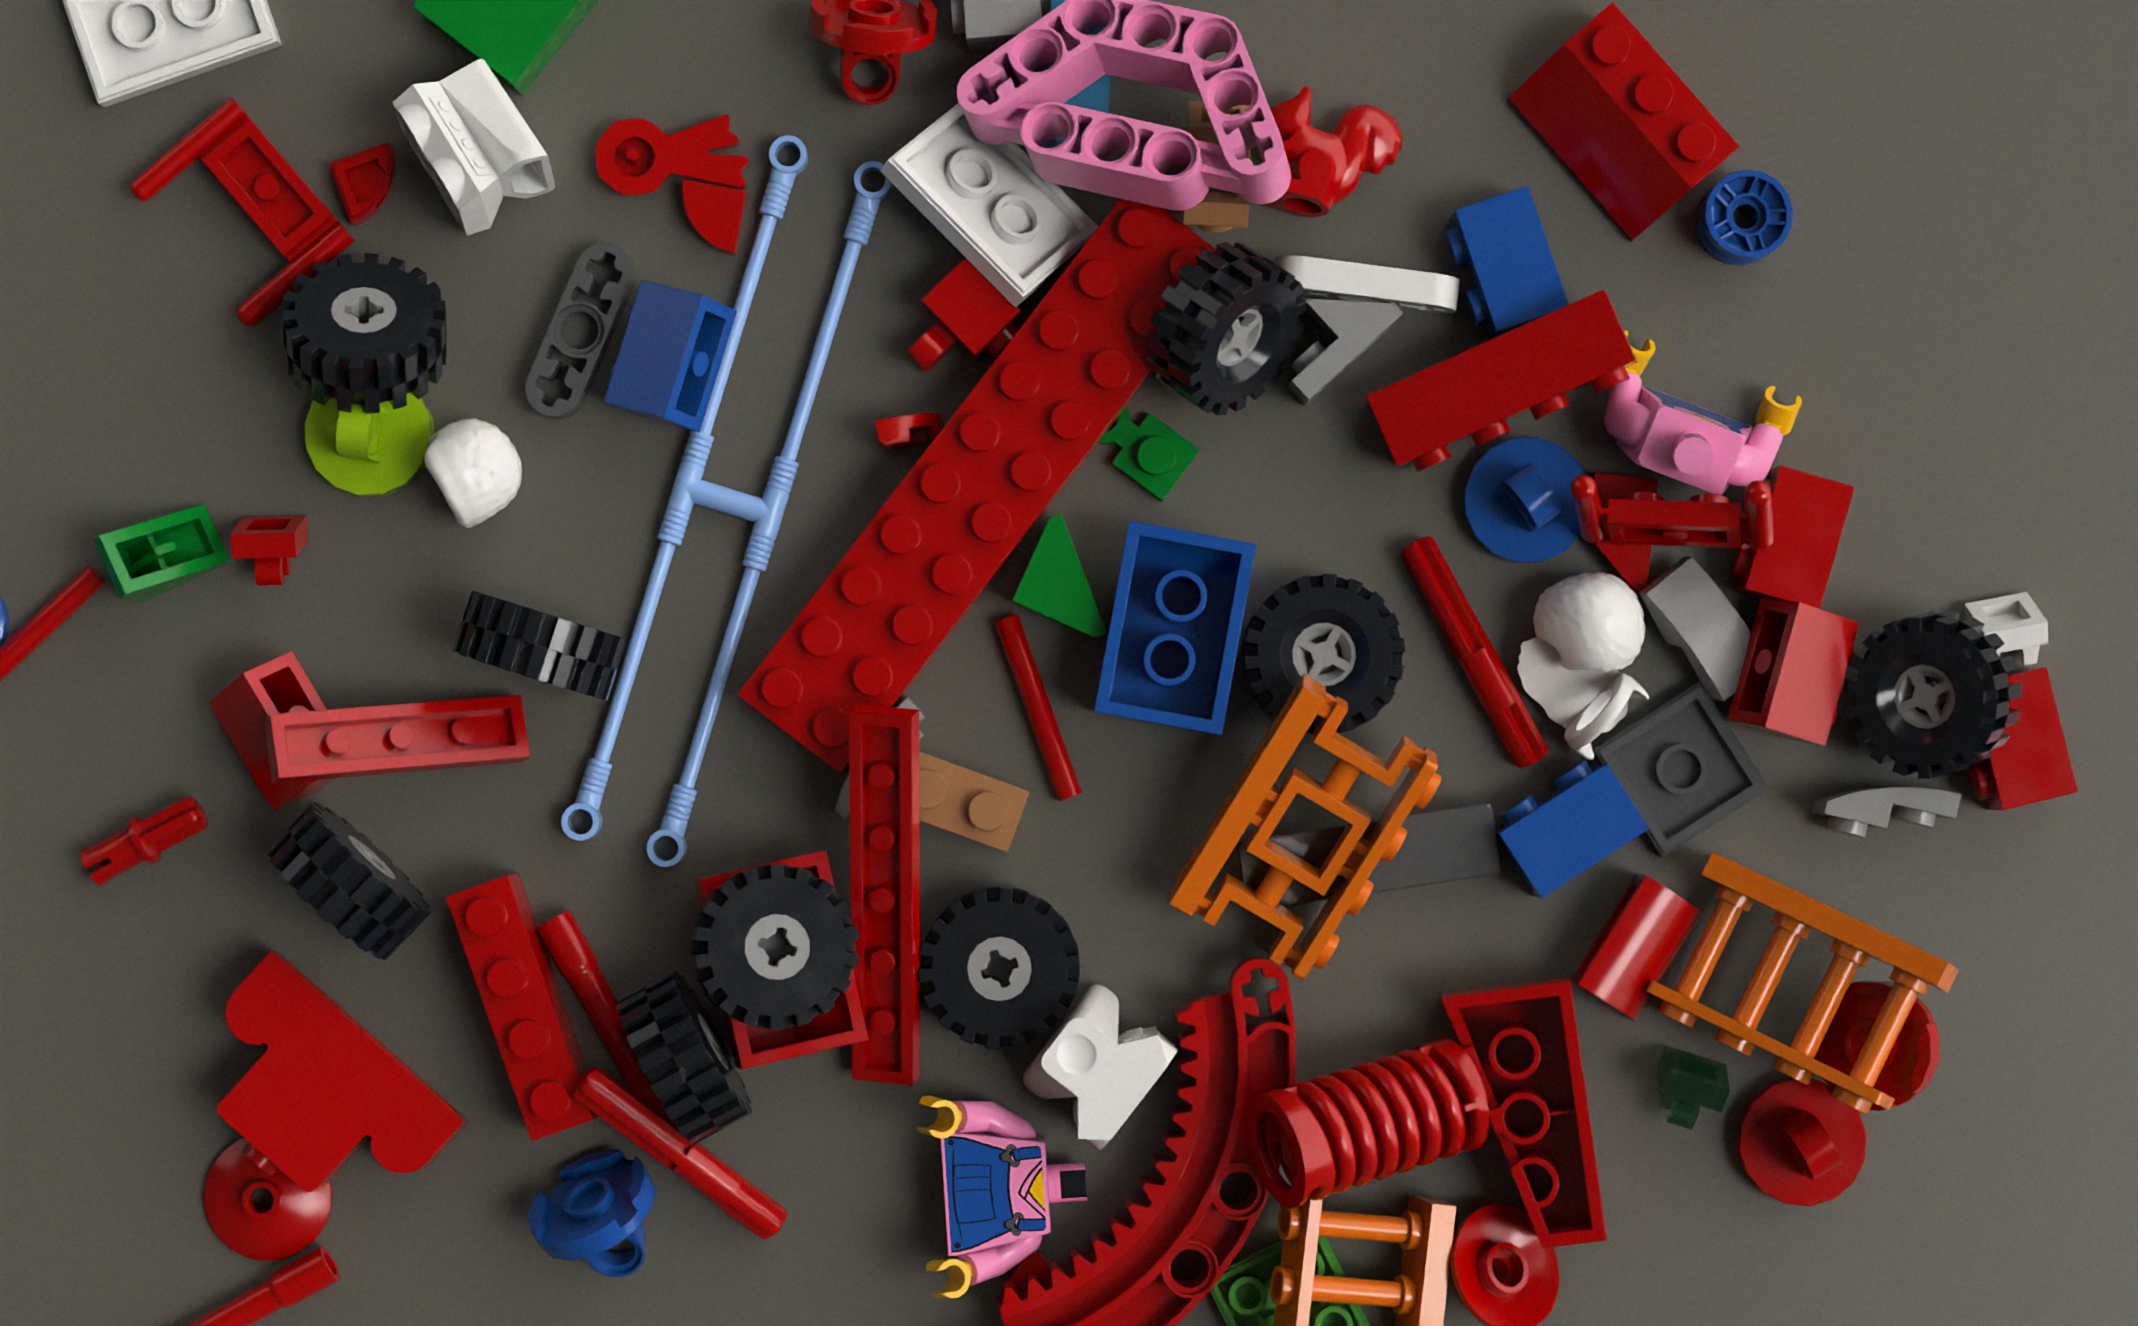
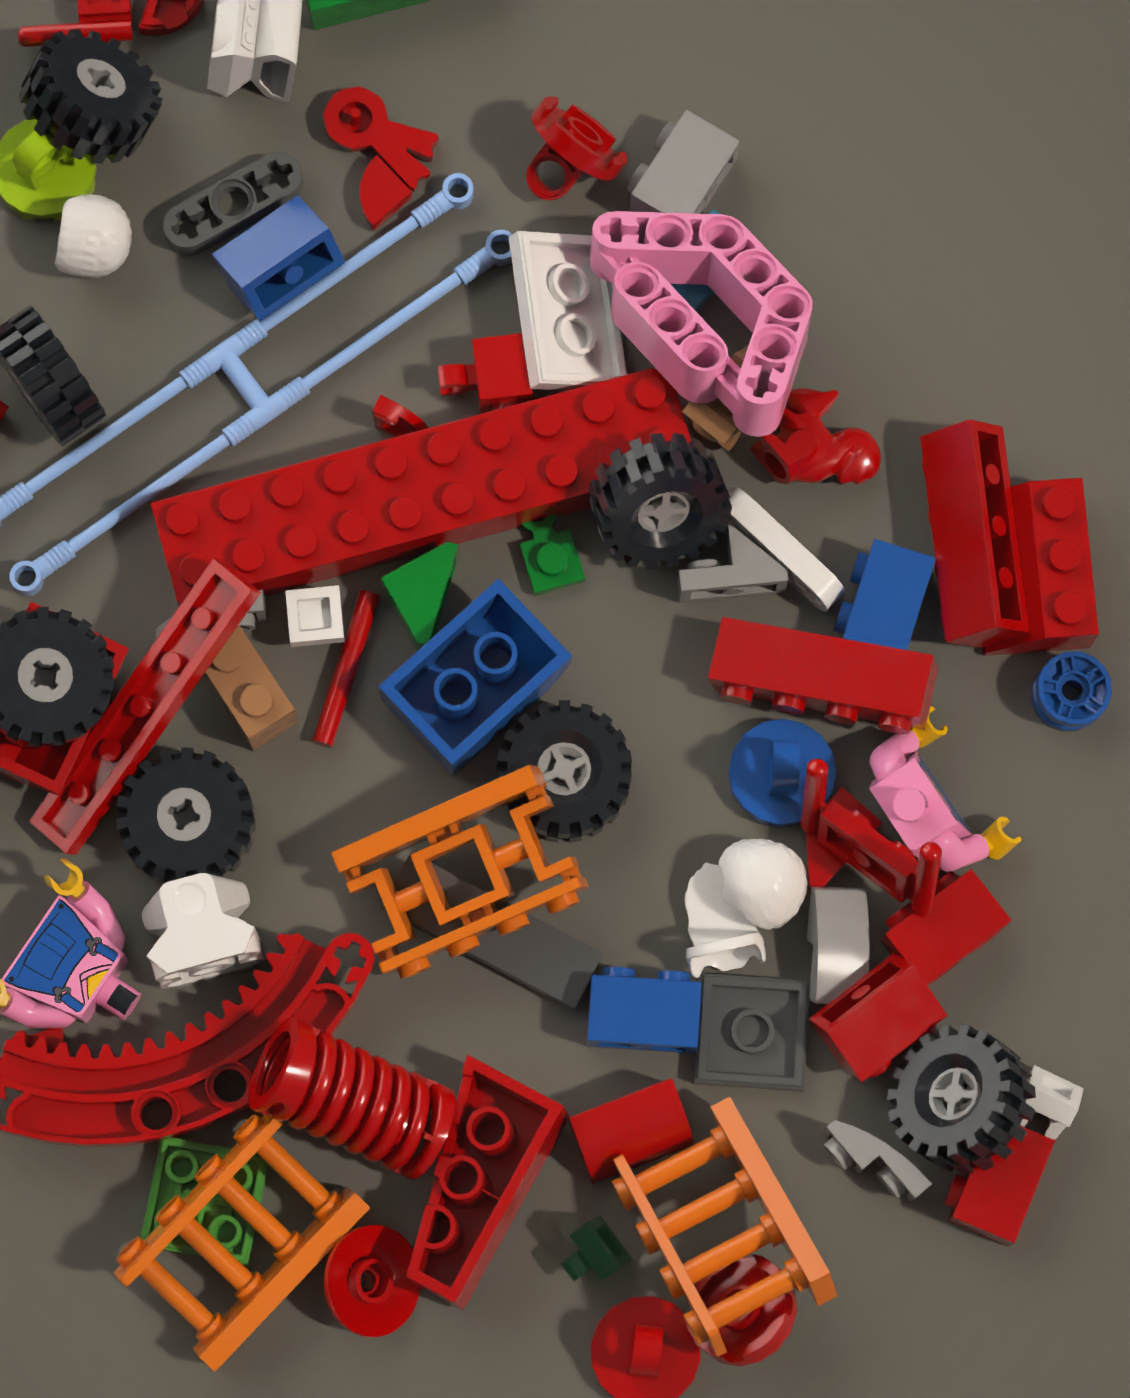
camera: 30 degrees right, 10 degrees down
(974, 682) = (314, 616): none -> white tile
(1474, 652) = (669, 848): red axle -> none
(1545, 133) = (974, 534): none -> red brick

